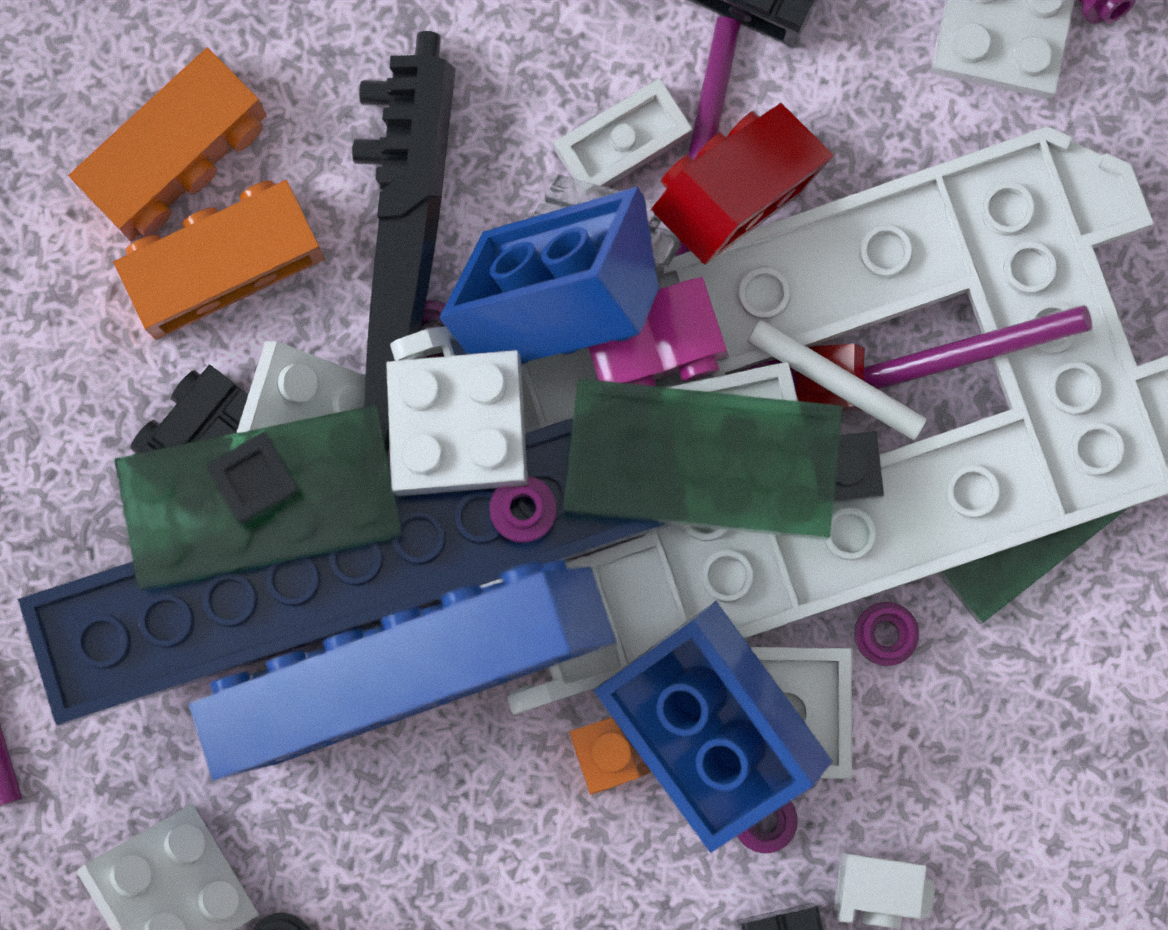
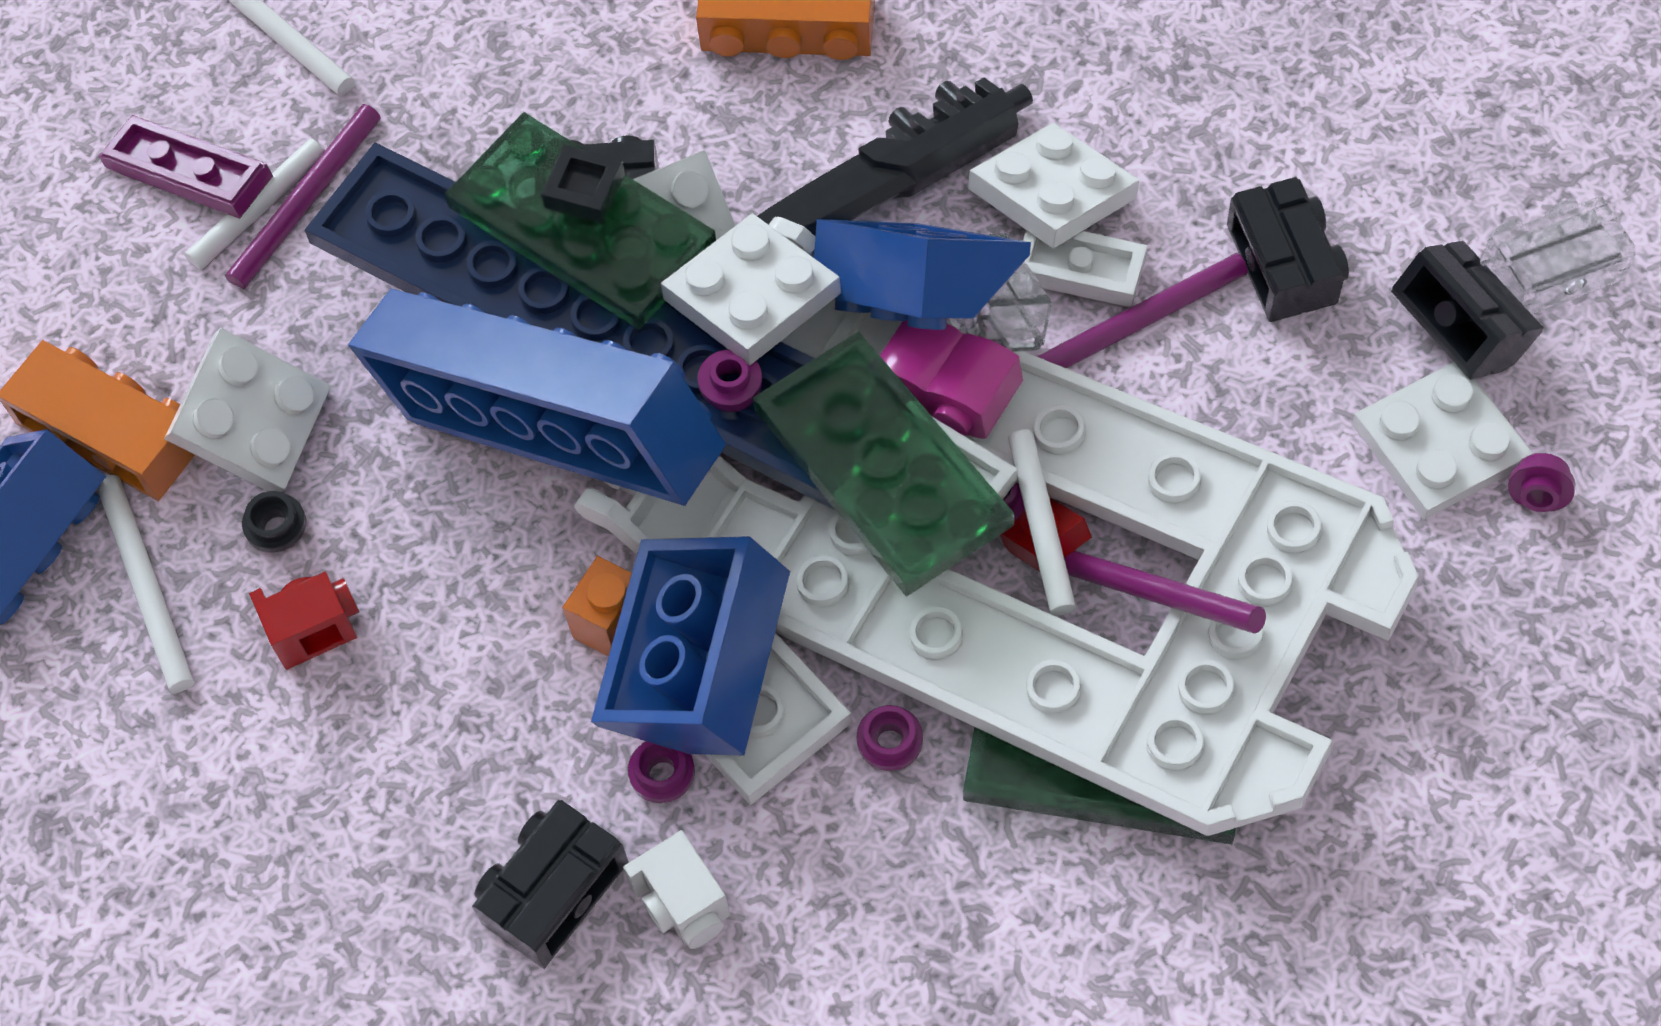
camera: 55 degrees right, 20 degrees down
(218, 258) = (737, 97): orange brick -> none
(538, 95) = (1053, 184): none -> white plate
(739, 181) = (1119, 335): red brick -> none
(858, 468) = (982, 583): black plate -> none

